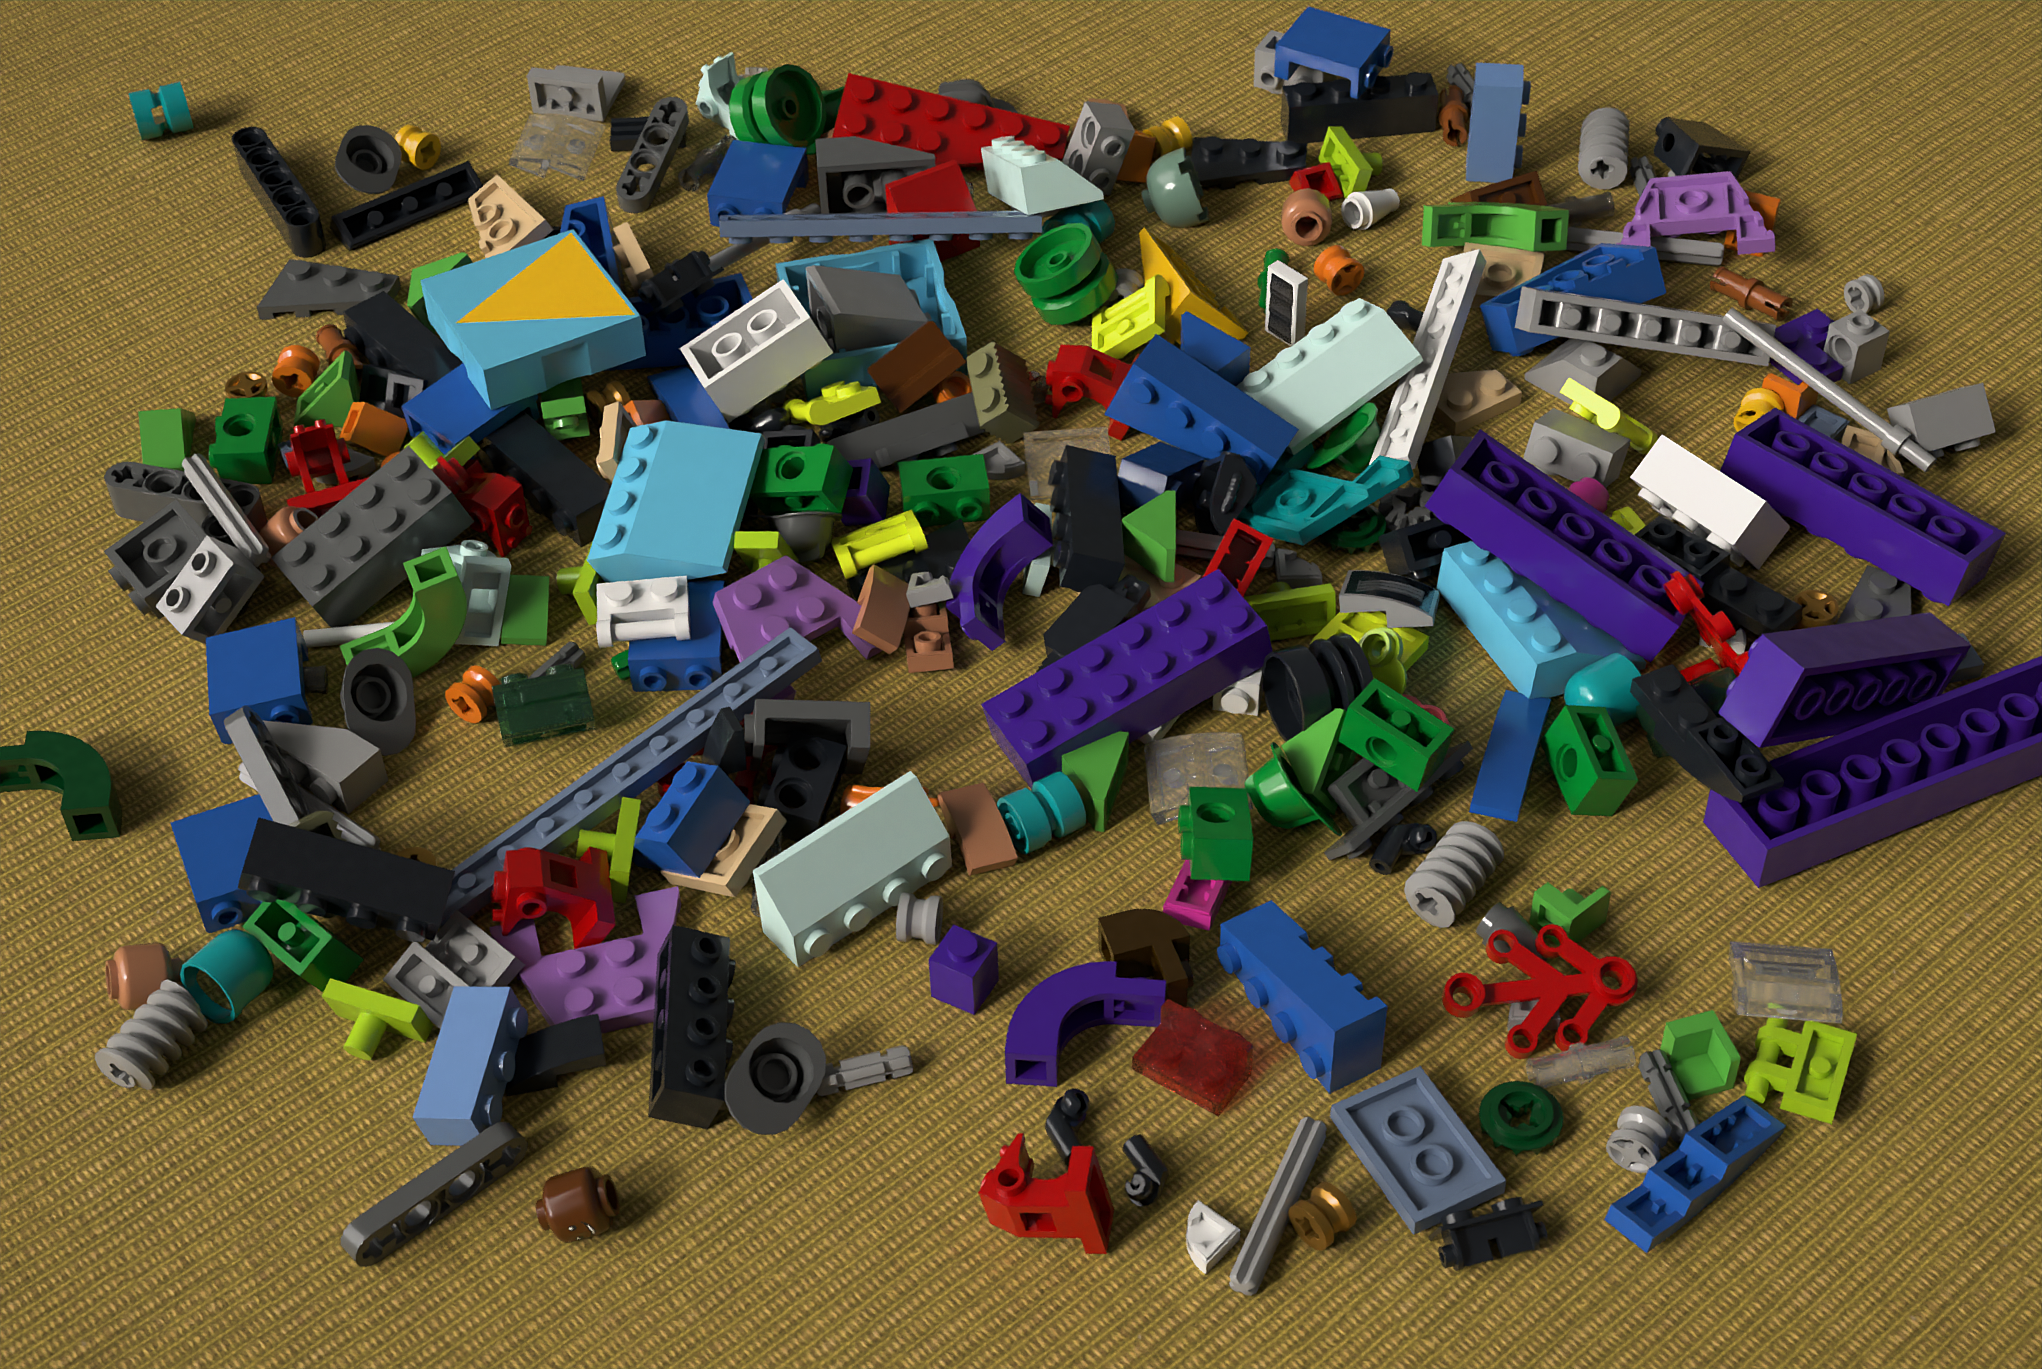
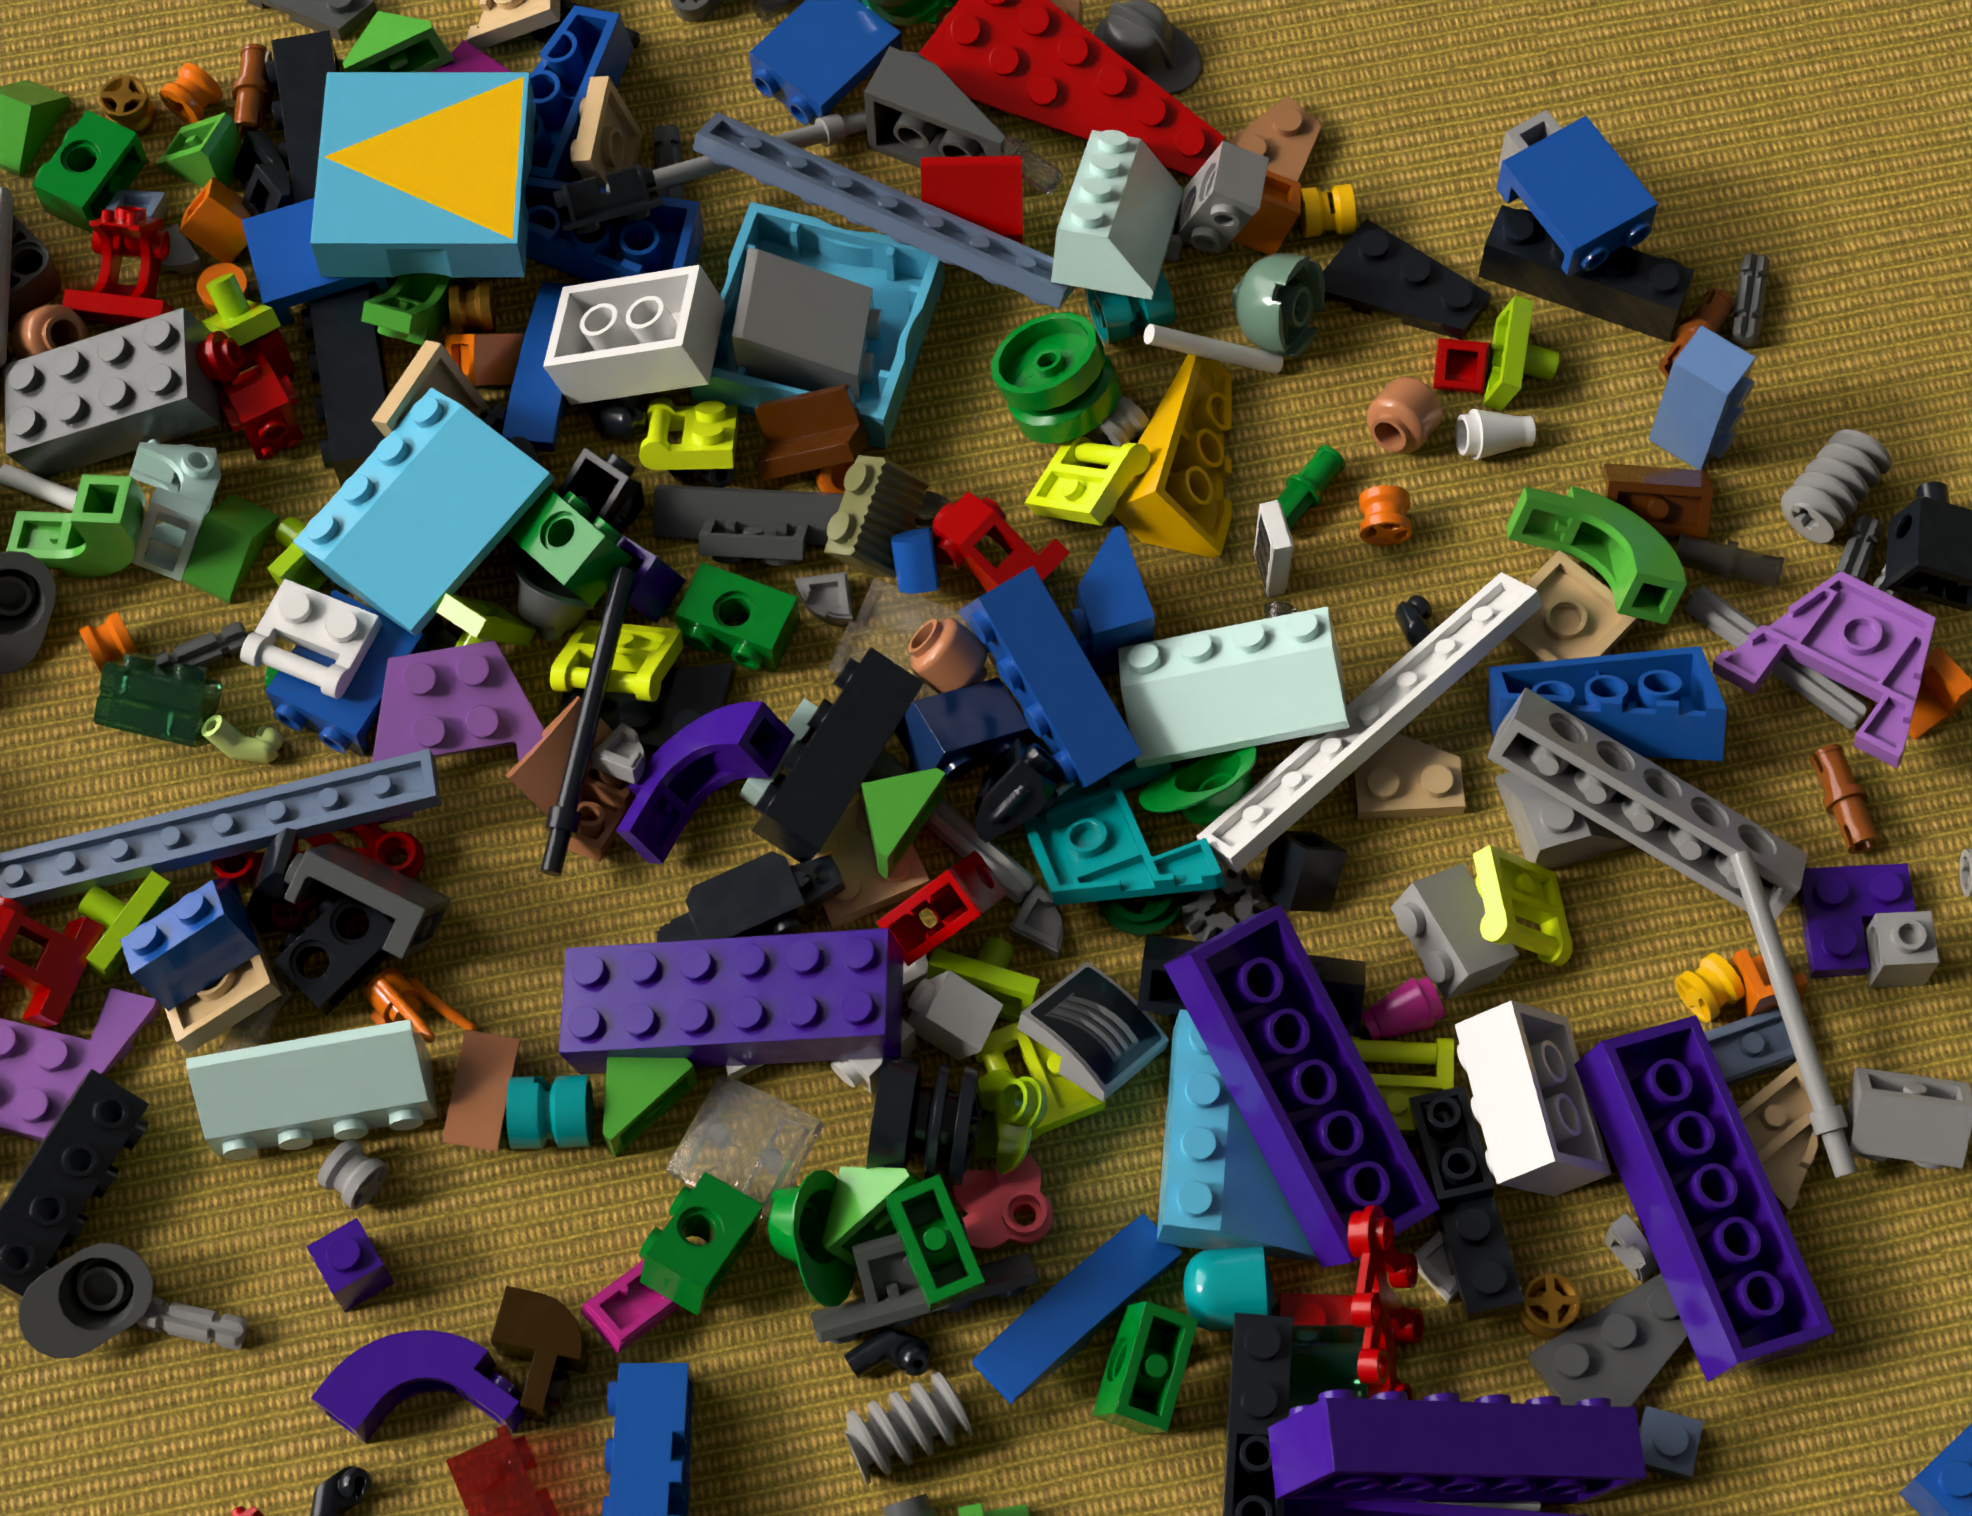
camera: 30 degrees right, 20 degrees up
(627, 714) = (241, 747): none -> yellowish green arm
(915, 635) = (564, 818): none -> black bar
(1052, 402) = (915, 561): none -> blue brick
(1117, 434) = (947, 655): none -> nougat head
(1156, 224) = (1213, 349): none -> white bar
(1290, 622) = (952, 1014): none -> white brick
(1834, 564) = (1631, 1248): none -> light grey tile

